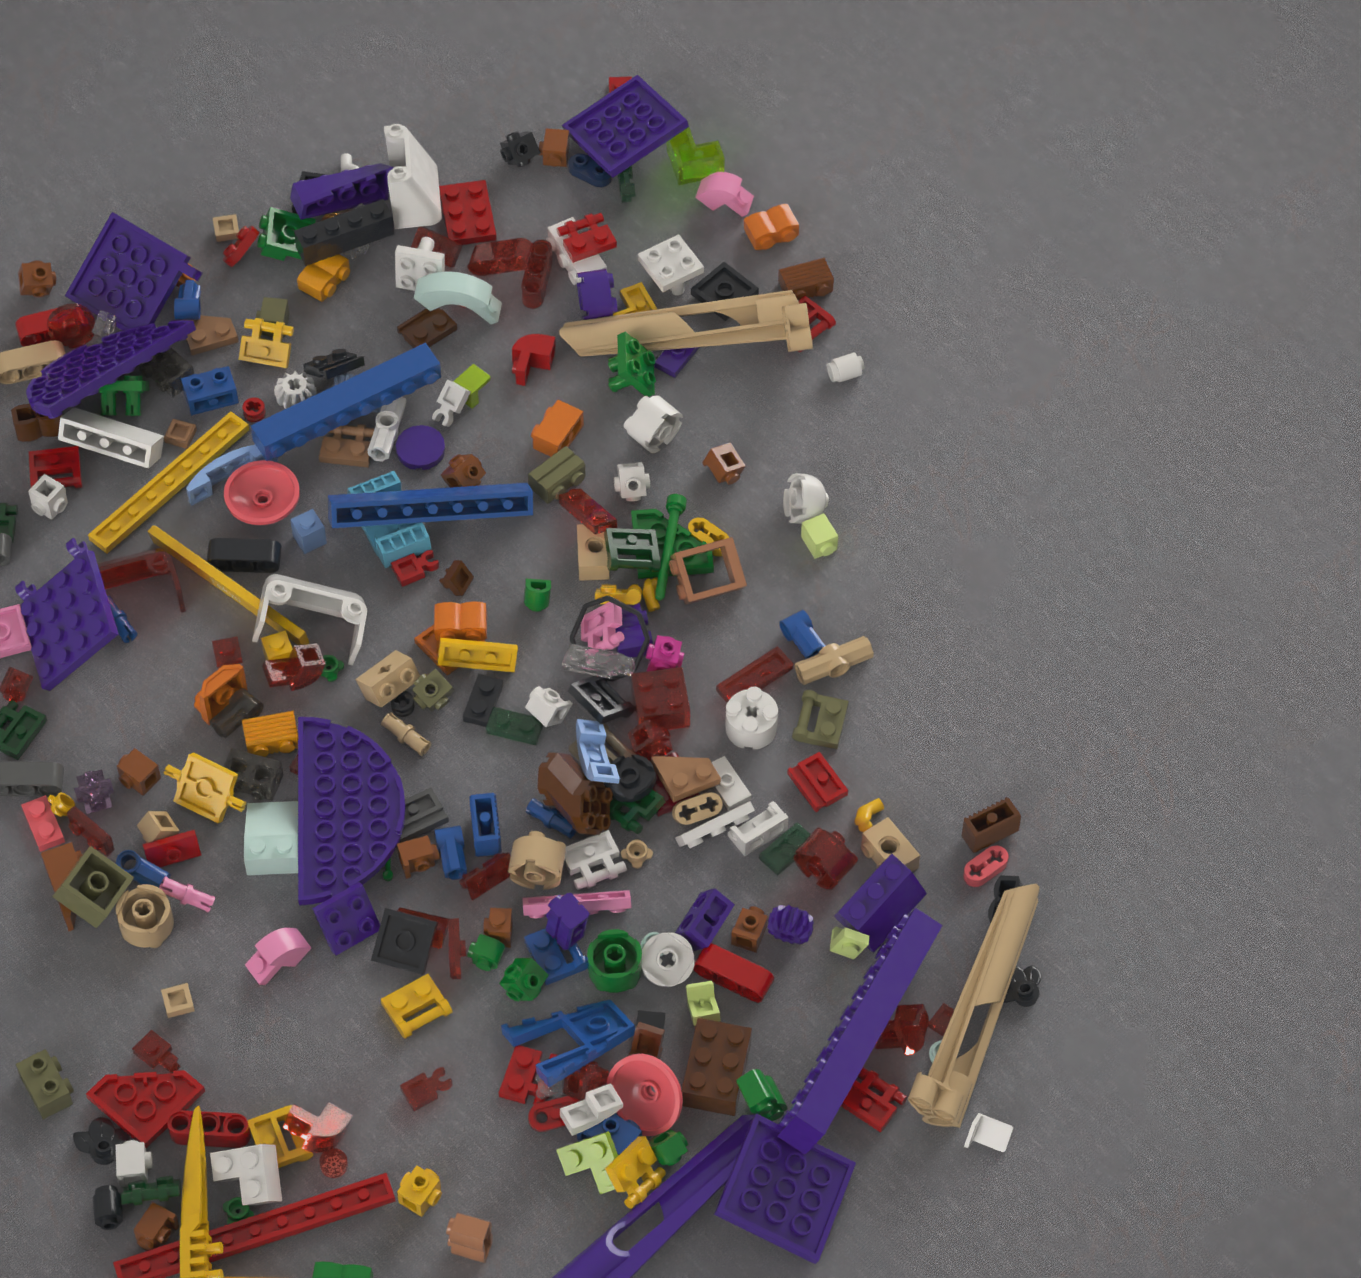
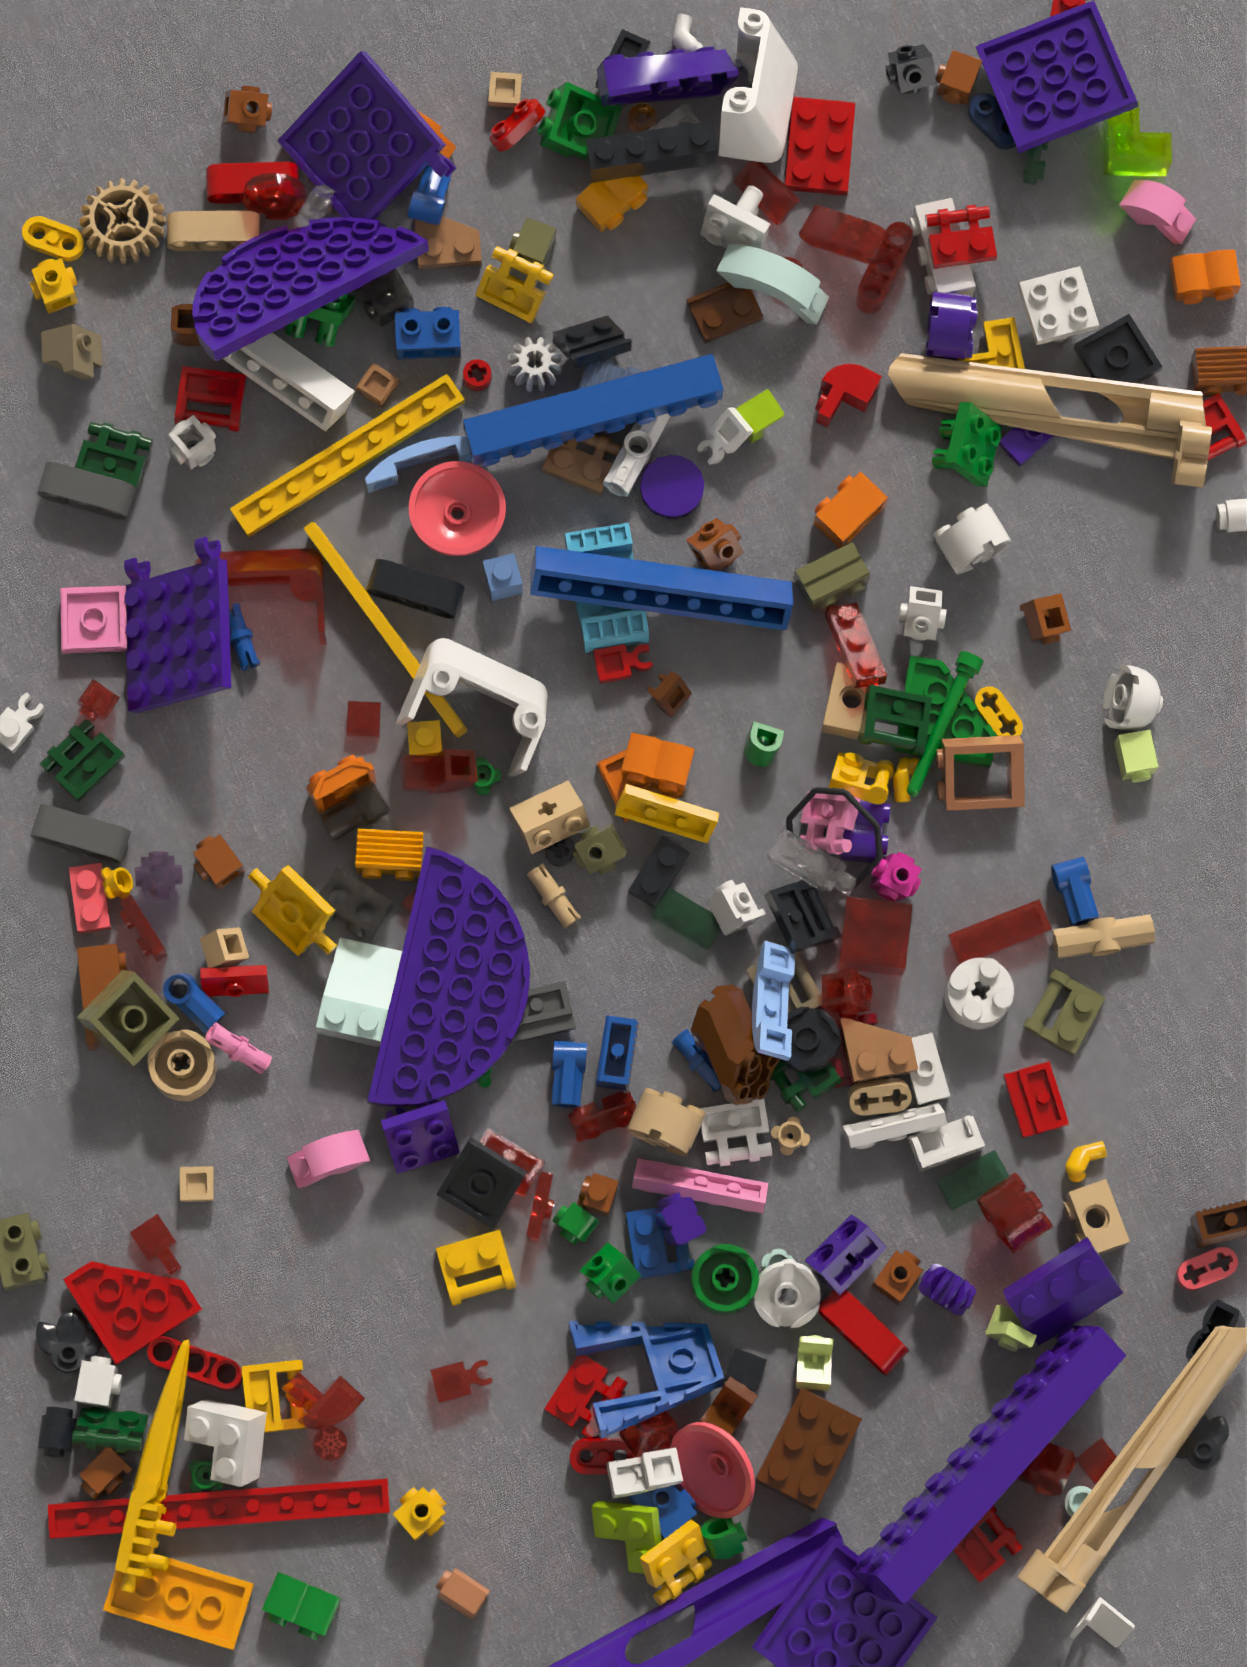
camera: 10 degrees right, 20 degrees up
(417, 855) = (526, 1069): dark orange brick -> none
(762, 1094) = (850, 1508): green brick -> none

